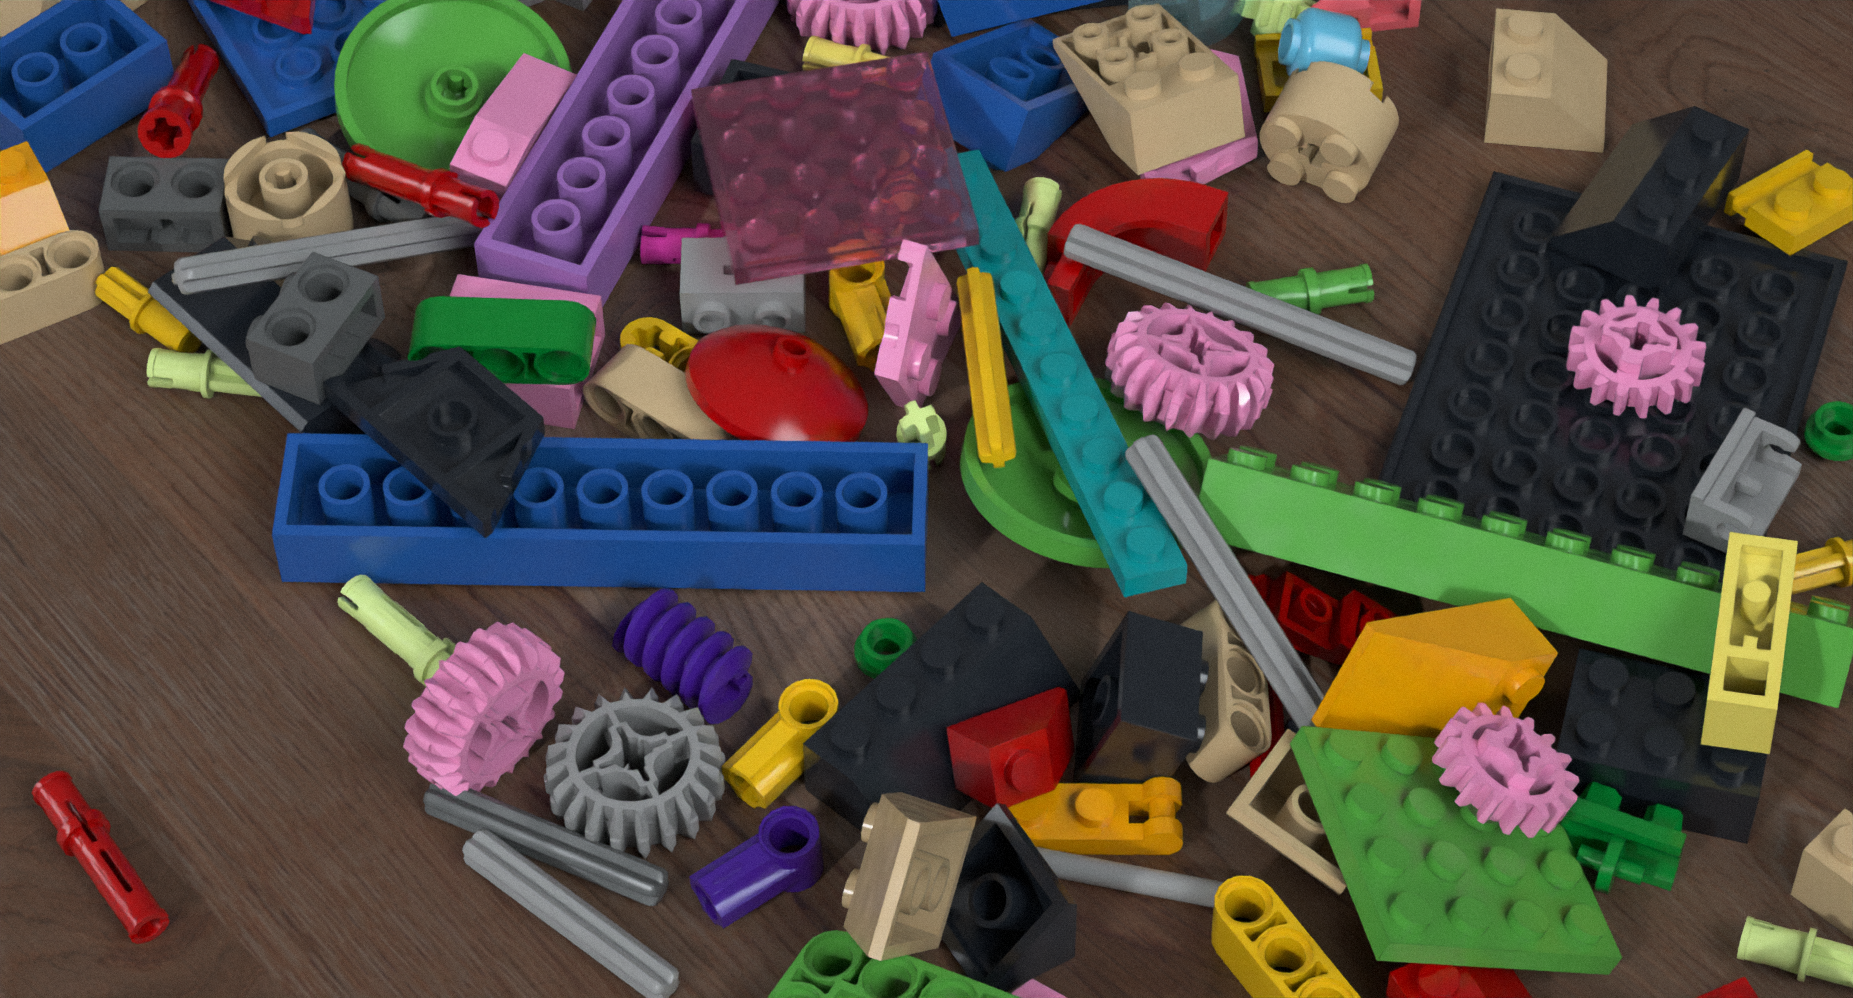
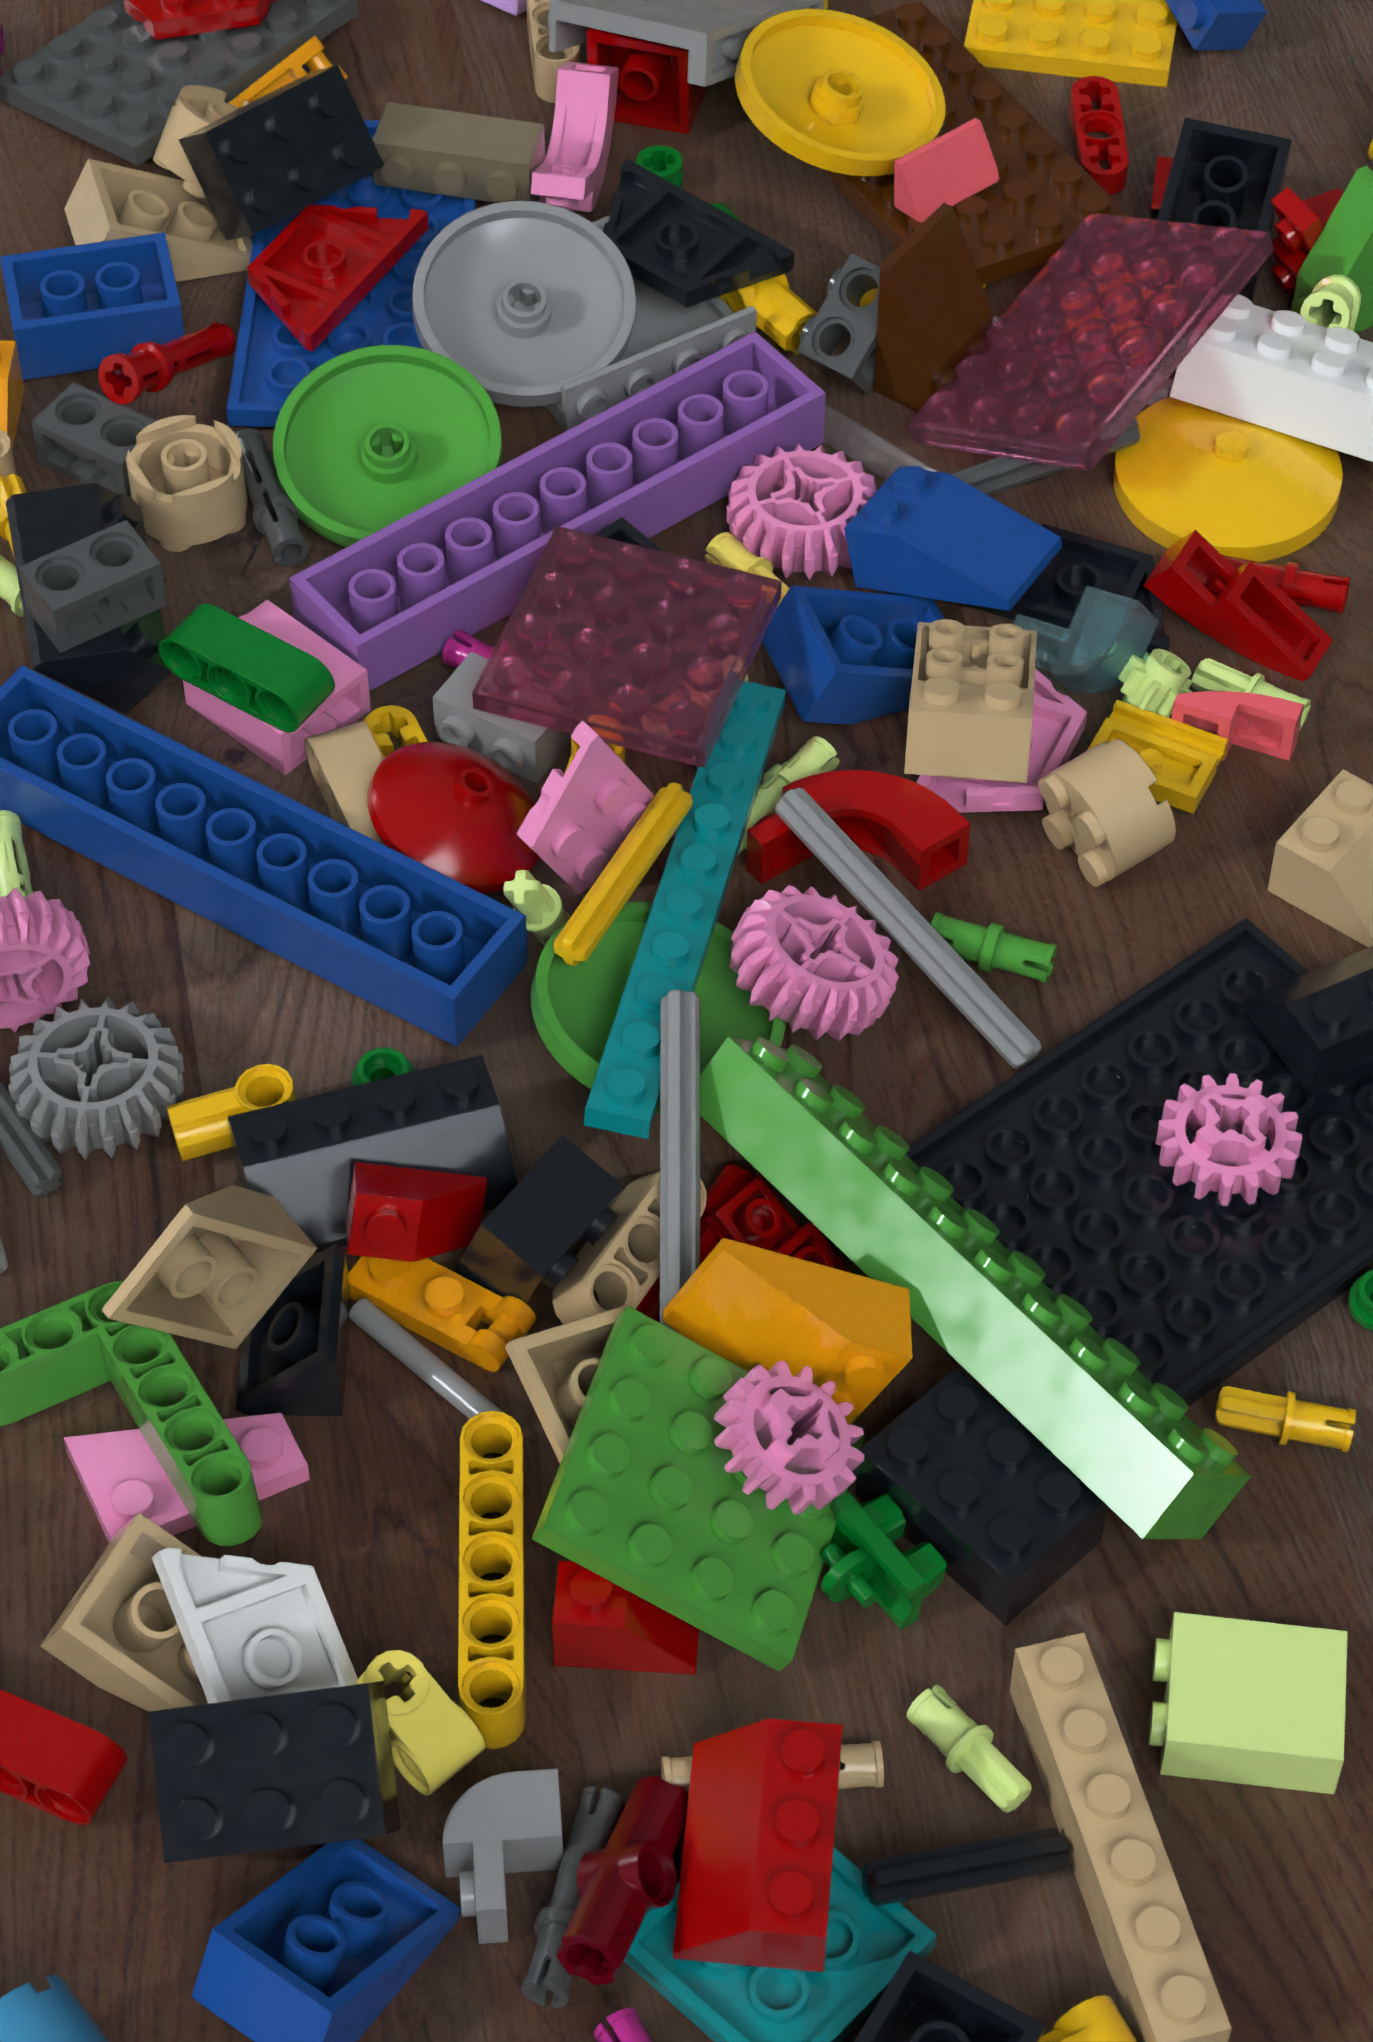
camera: 30 degrees right, 0 degrees up
(352, 247) = (157, 529): light grey axle -> none
(434, 189) = (291, 519): red pin -> none
(448, 428) = (138, 719): black wing -> none
(510, 124) = (392, 491): bright pink slope -> none
(686, 655) = (211, 1002): dark purple piece -> none
(758, 869) = (129, 1204): dark purple piece -> none
(1322, 37) = (1157, 732): medium azure head -> none
(1743, 483) = (1236, 1302): light grey hinge -> none
(1749, 643) = (1075, 1433): light yellow slope -> none

